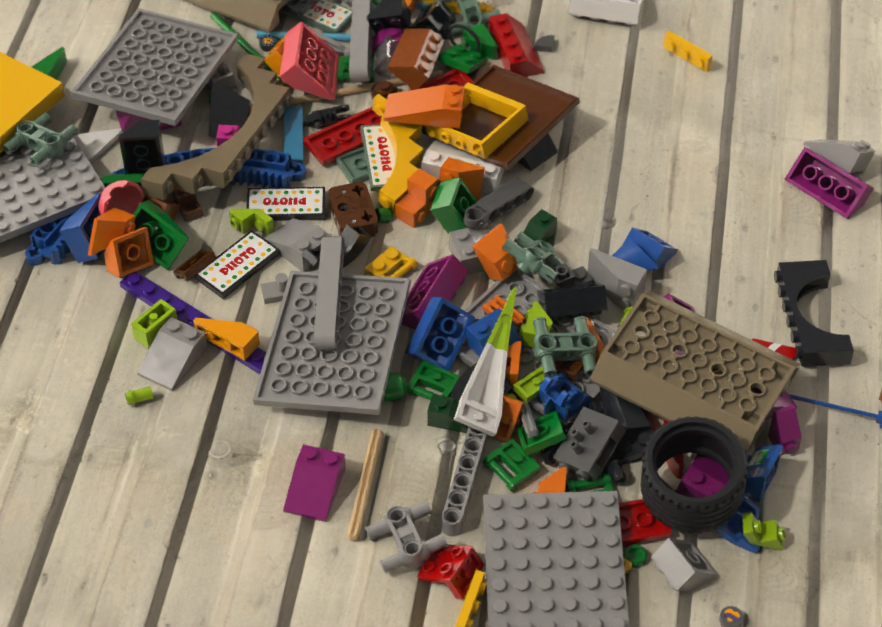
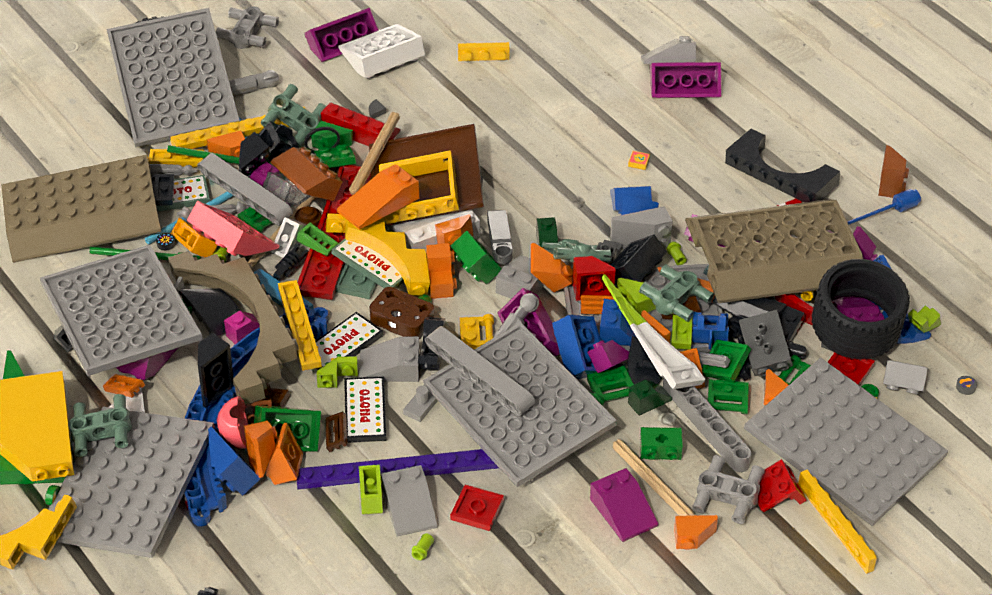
camera: 45 degrees left, 5 degrees down
(104, 130) = (122, 387): none -> orange tile
(111, 178) = (211, 408): green plate -> none
(212, 398) = (477, 507): none -> red plate
(230, 335) = (441, 454): light orange slope -> none
(259, 165) = (299, 325): none -> yellow plate
(338, 547) = (693, 530): none -> orange slope
(353, 93) = (287, 236): none -> white slope
(358, 100) = (315, 233): none -> bright green slope
(407, 459) = (661, 443): none -> green brick
(418, 276) = (528, 303): none -> light grey piece
(449, 355) = (607, 355): none -> magenta slope
(494, 68) = (374, 153): none -> tan axle
(508, 275) = (588, 277): none -> red slope
(701, 223) = (639, 160): none -> yellow tile

